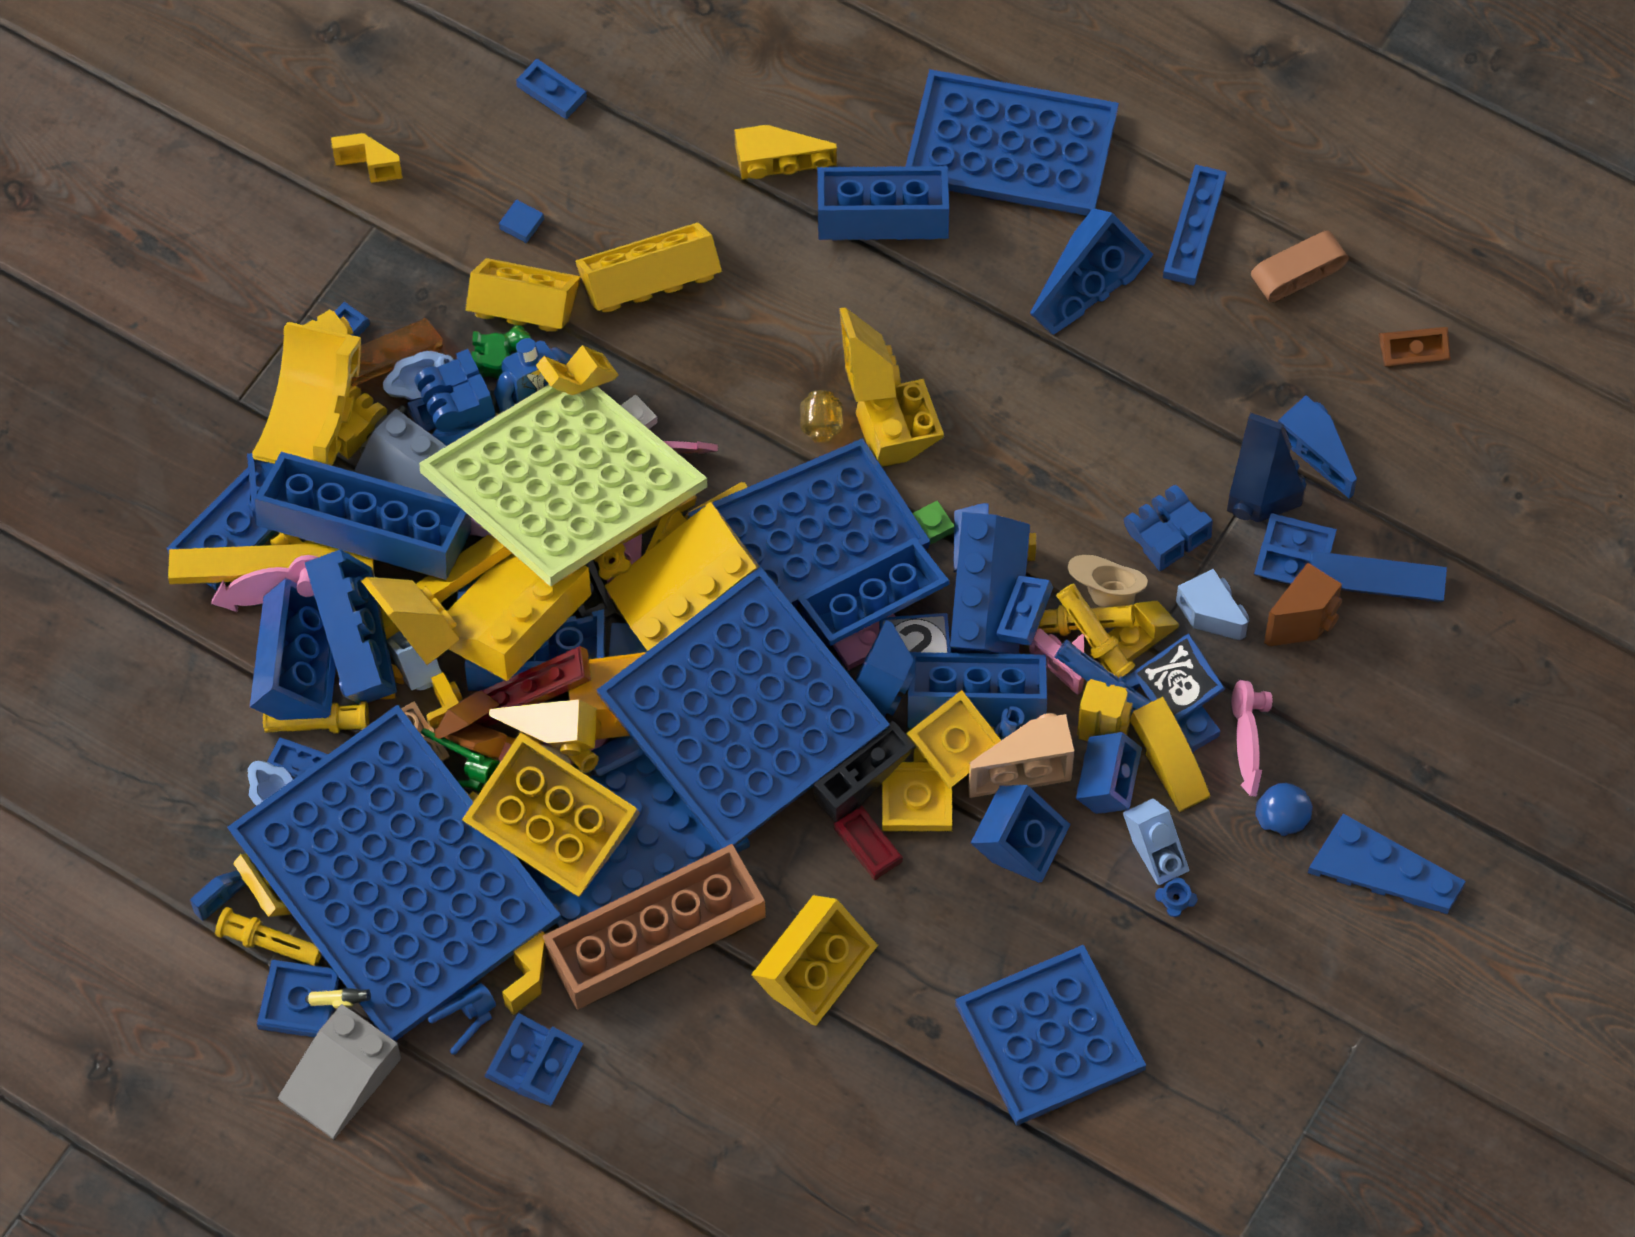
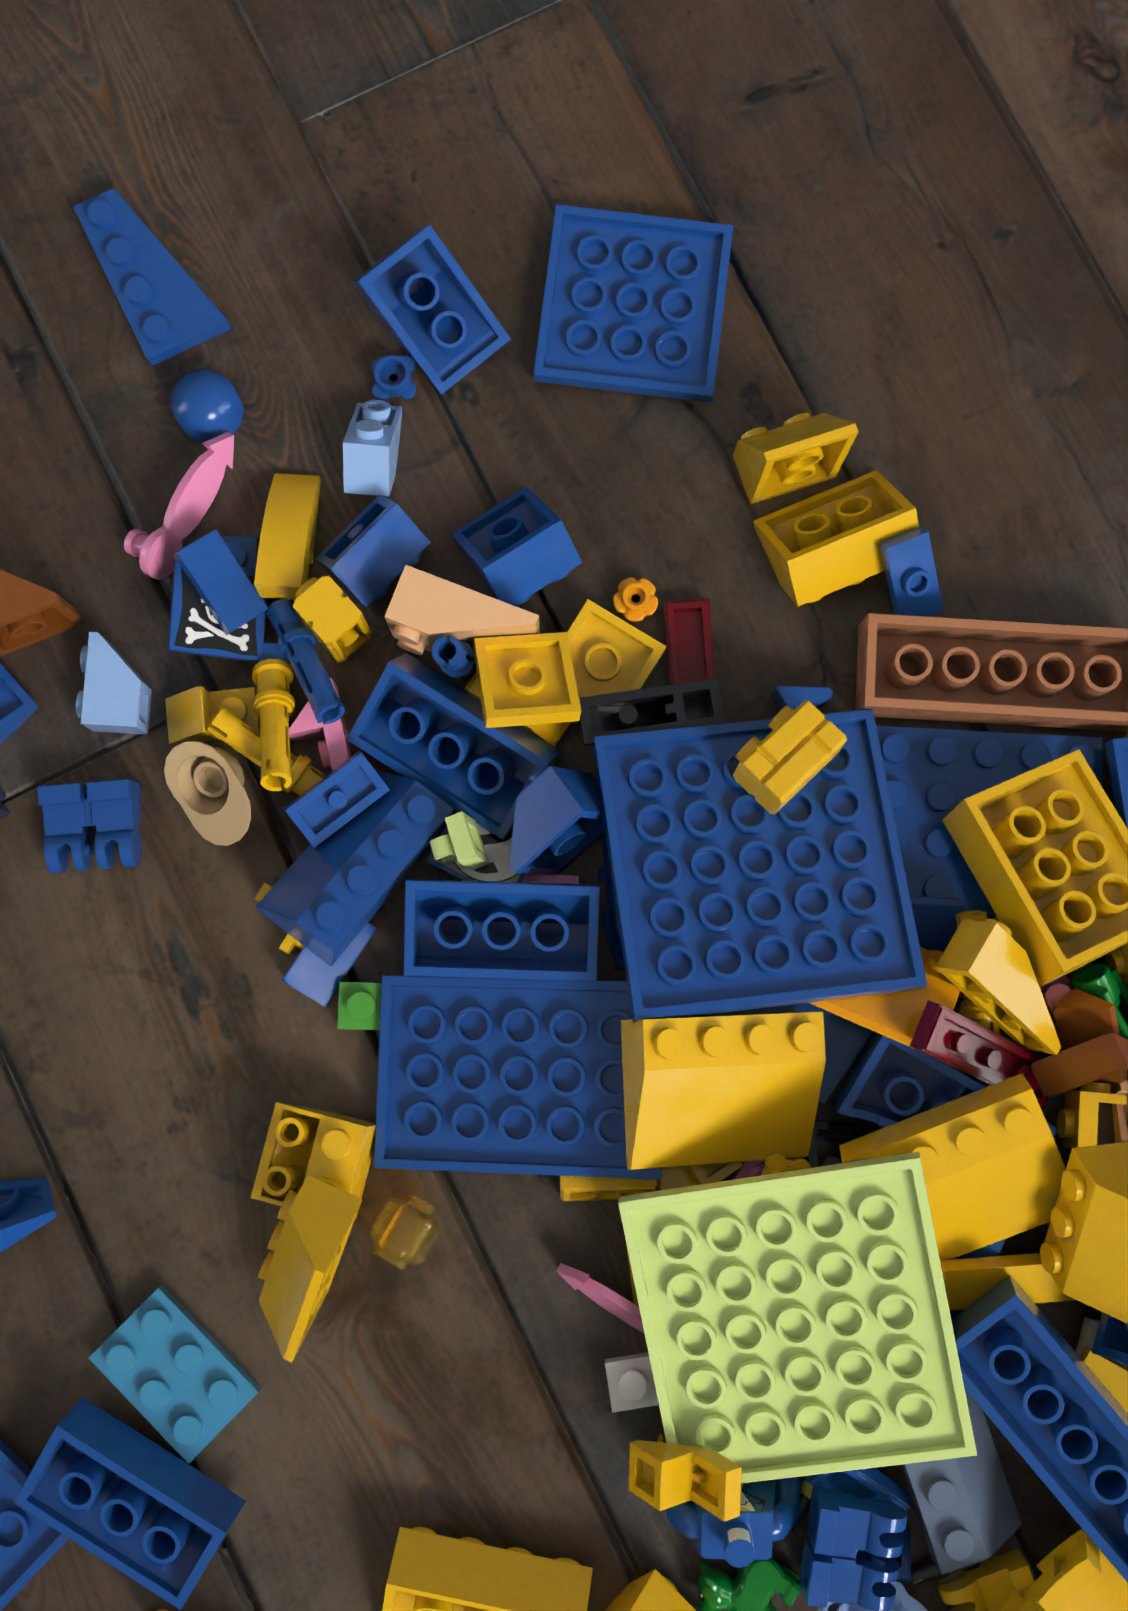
camera: 150 degrees left, 20 degrees up
(750, 953) = (911, 574): none -> blue plate
(761, 774) = (789, 756): none -> yellow brick
(775, 842) = (795, 695): none -> blue slope
(878, 977) = (792, 455): none -> yellow slope
(904, 279) = (175, 1373): none -> dark azure plate
(925, 857) = (635, 611): none -> light orange plate
(930, 628) = (461, 843): none -> yellowish green tile
(1184, 950) = (431, 308): none -> blue slope
(1186, 691) = (220, 582): none -> blue tile

